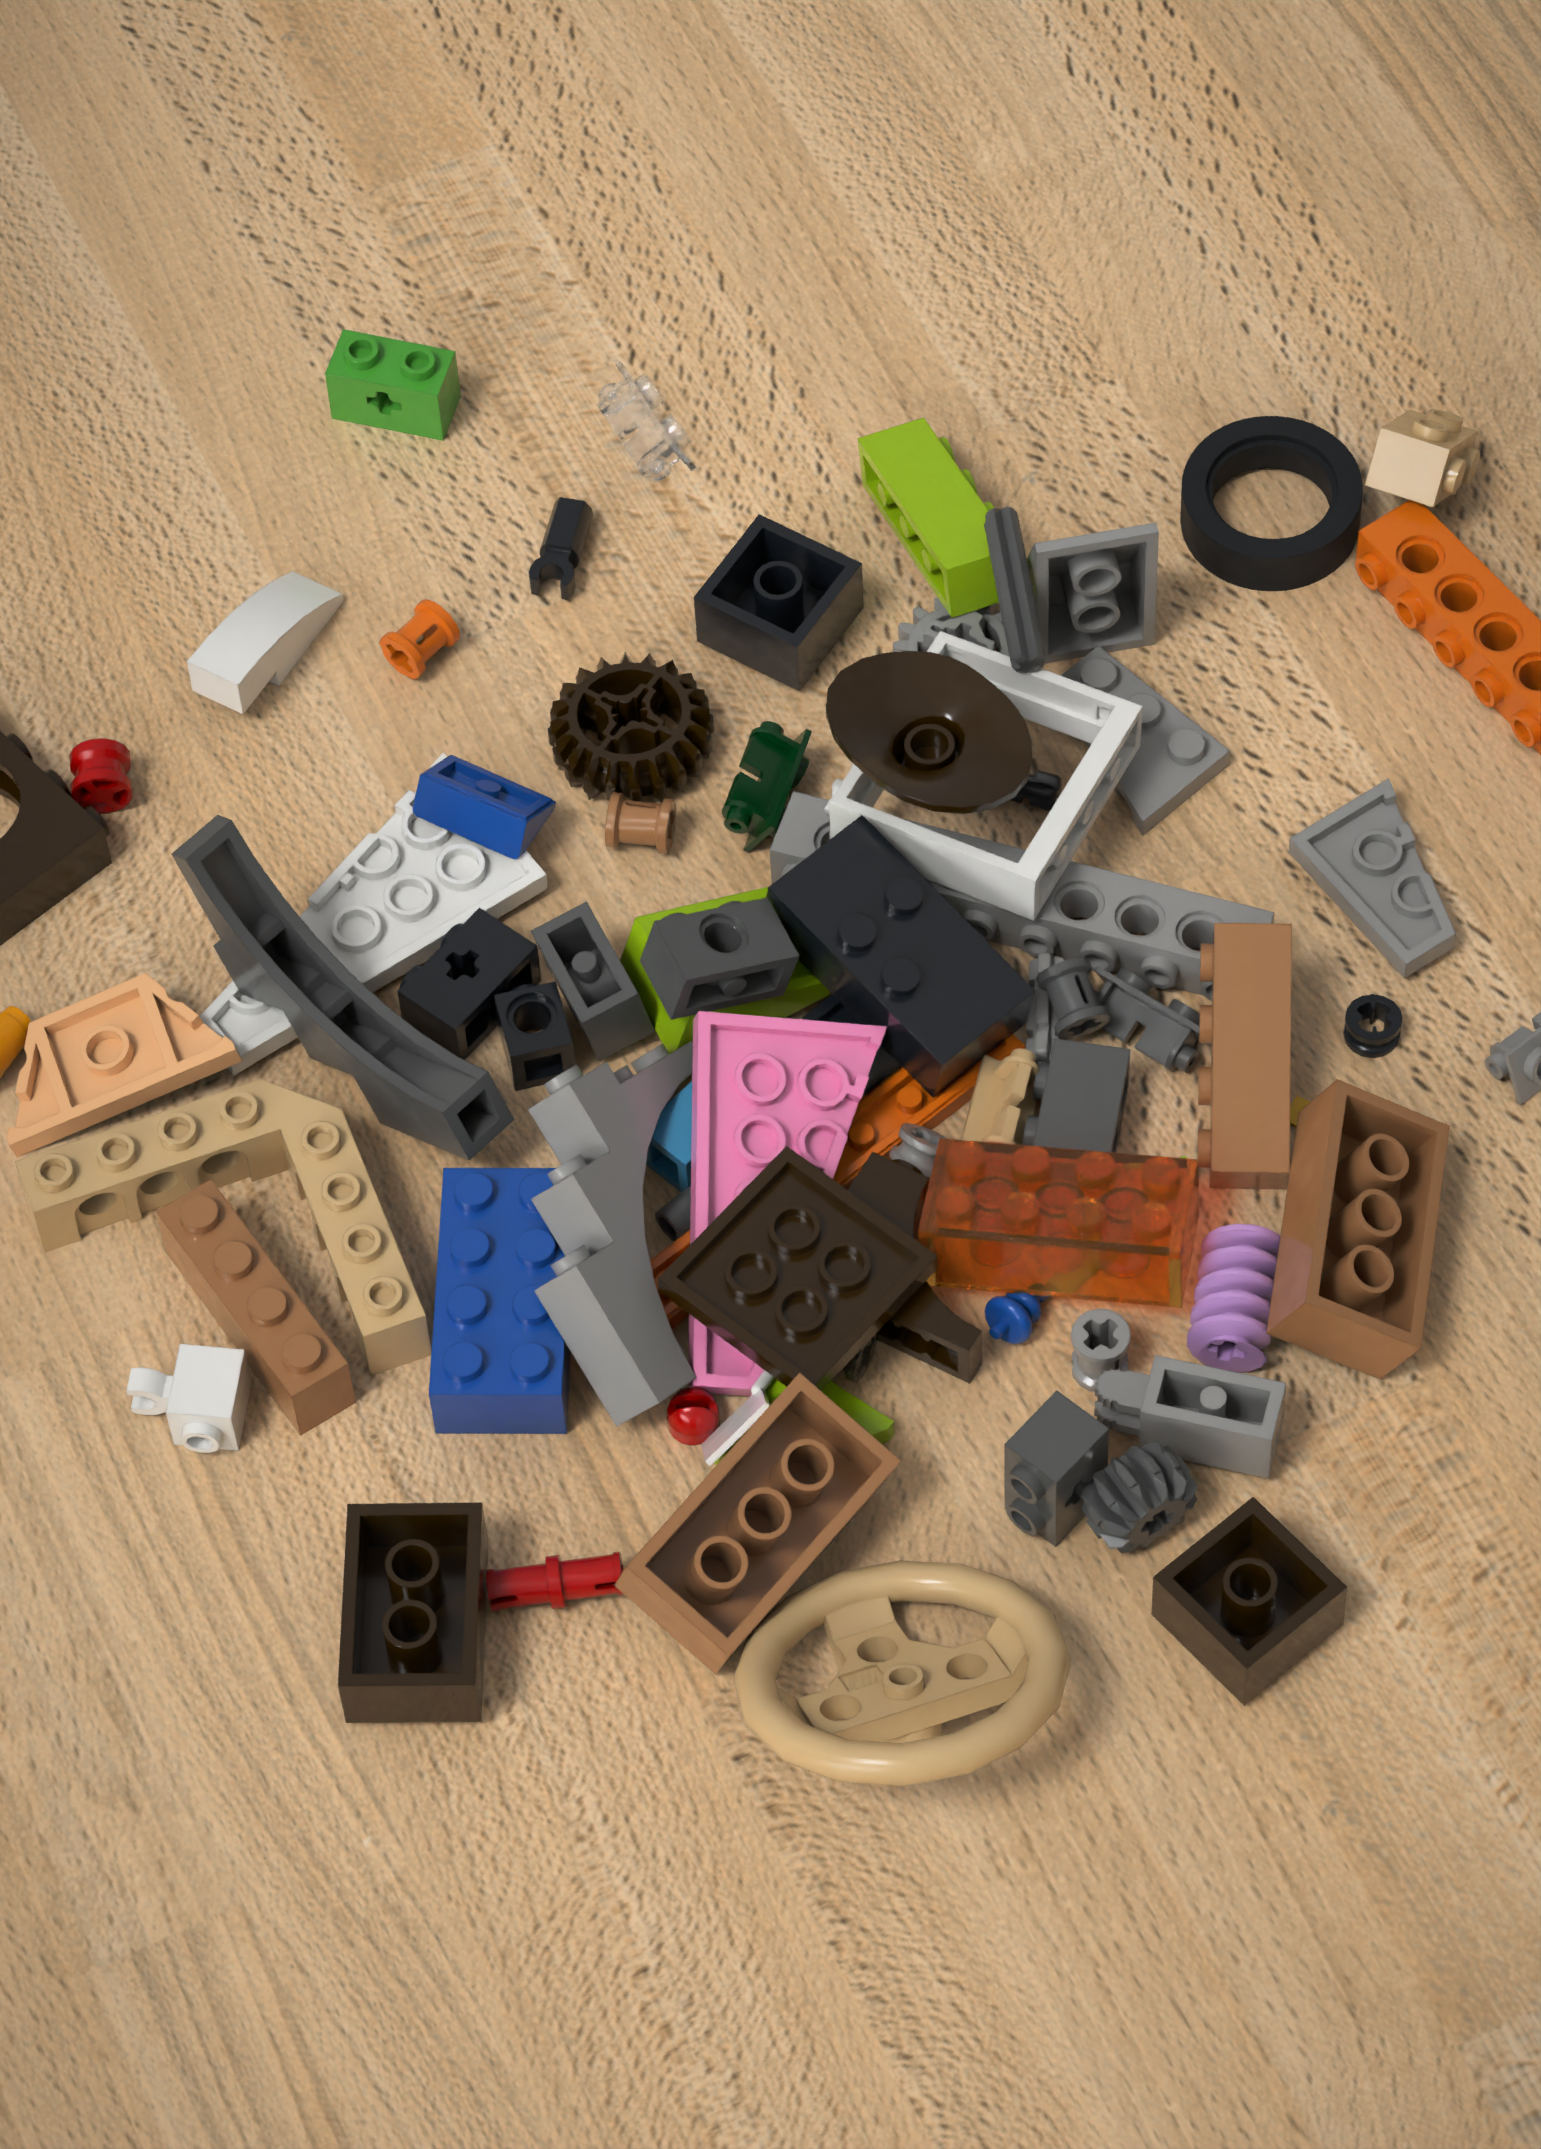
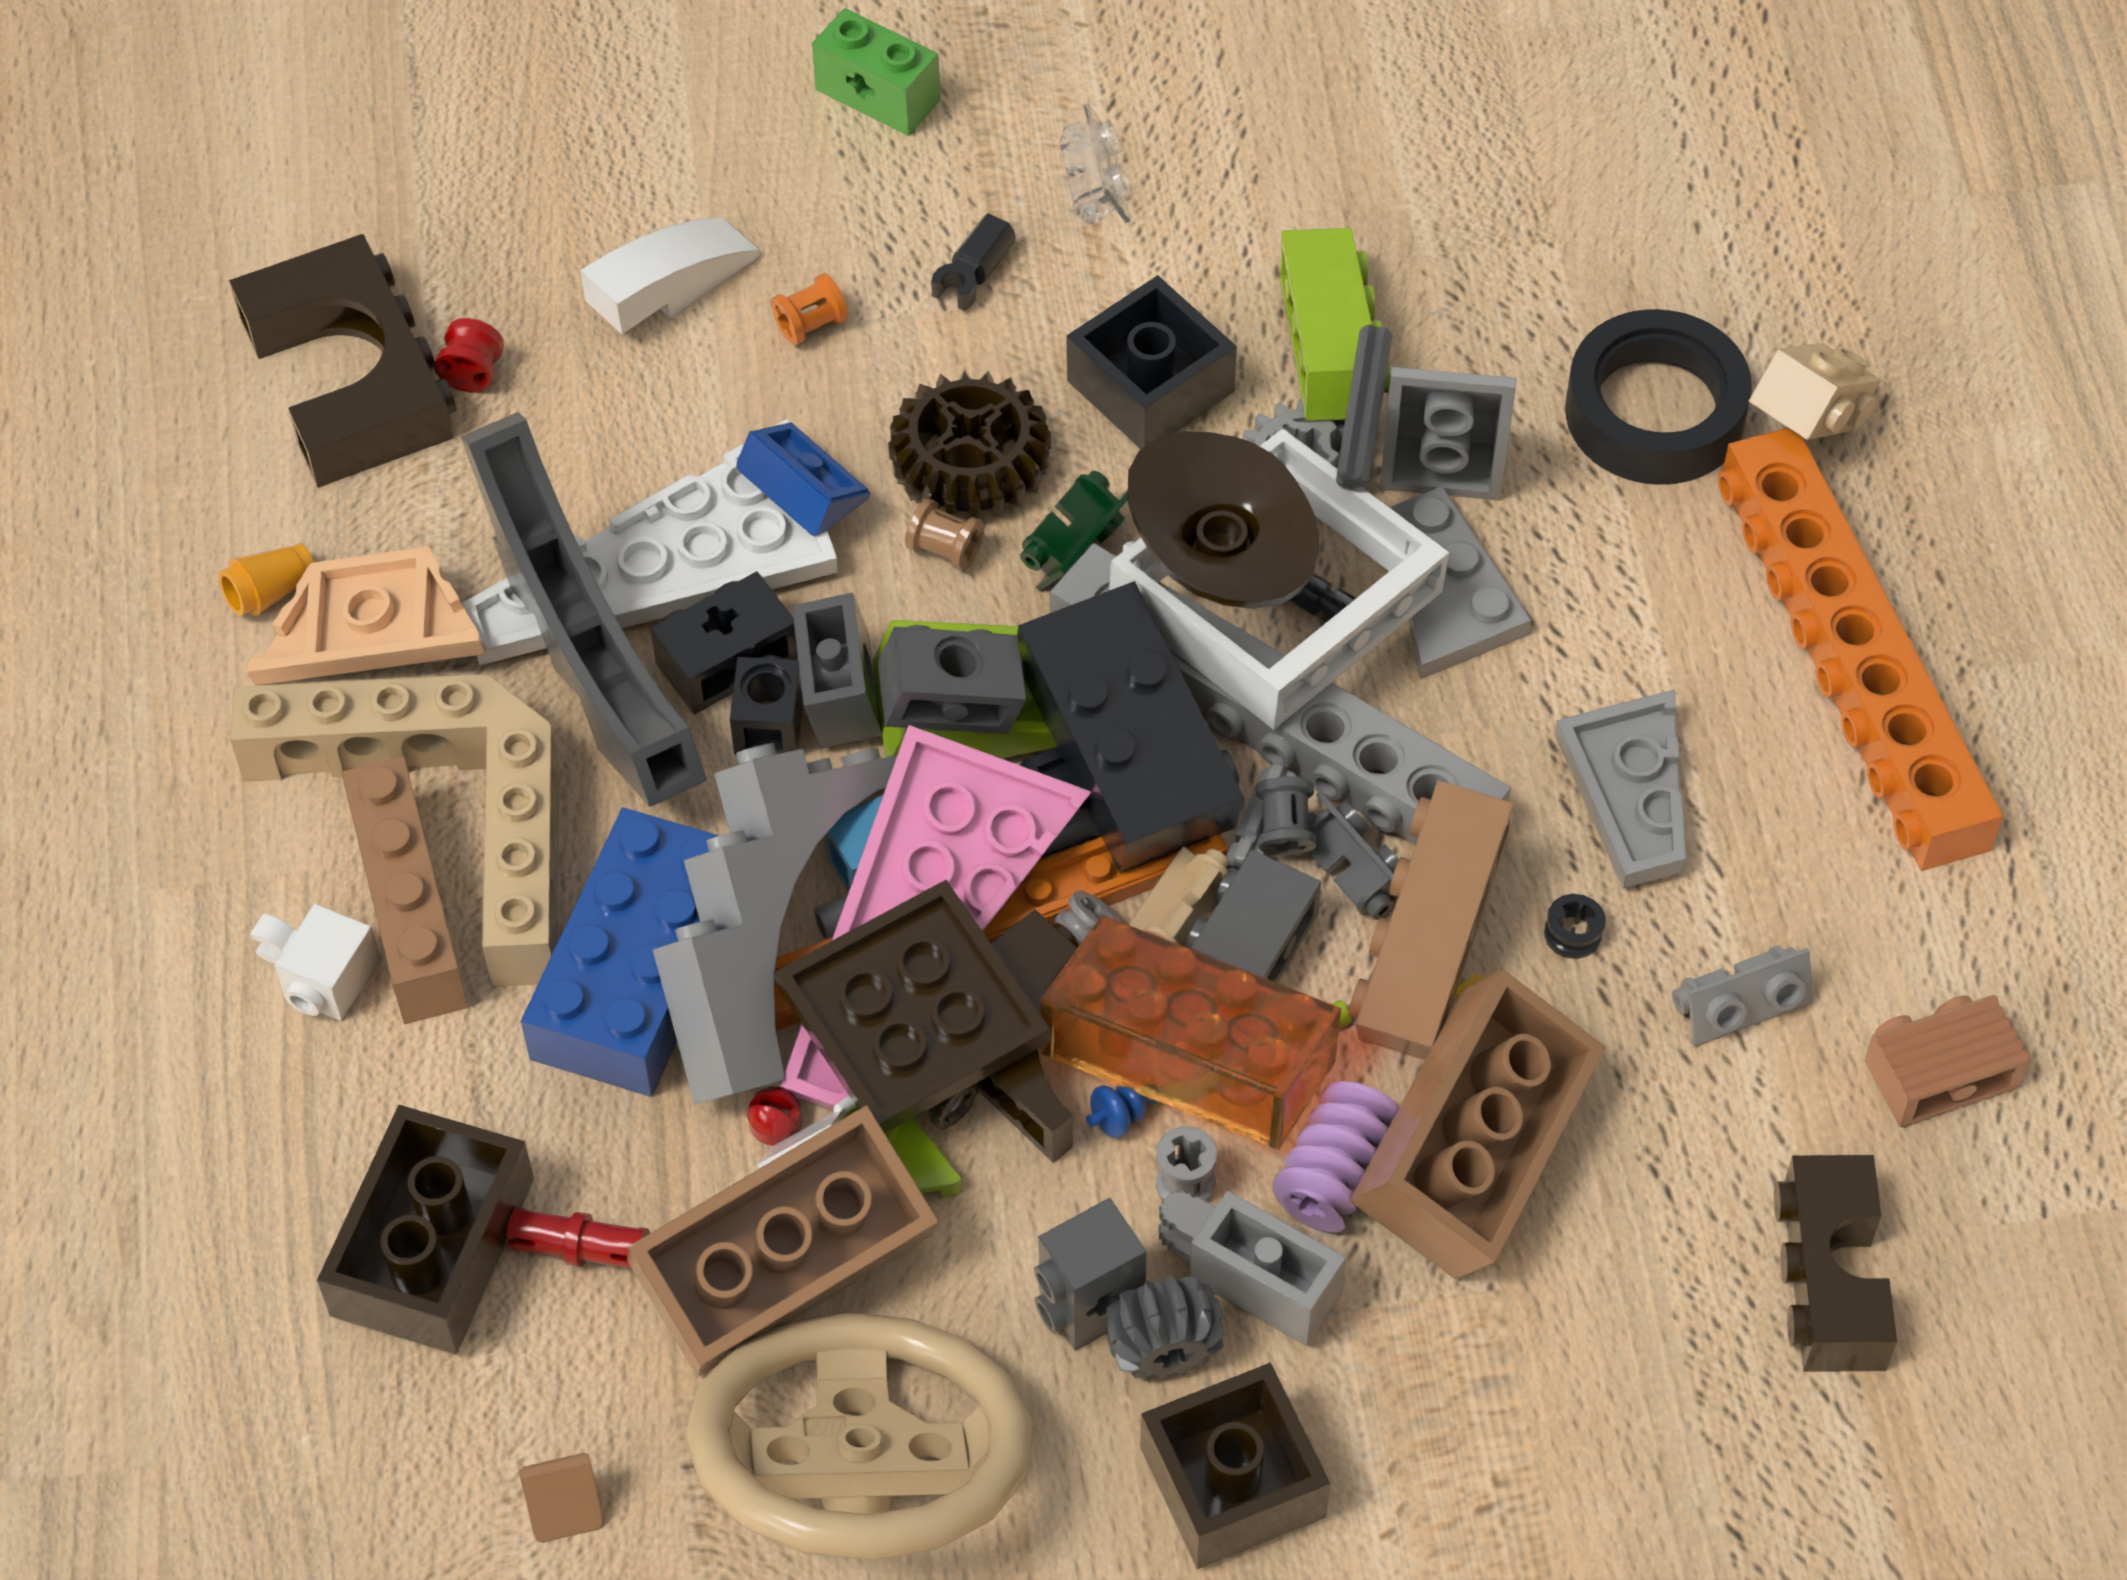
camera: 15 degrees right, 0 degrees up
(637, 1817) = (562, 1497): none -> medium nougat slope

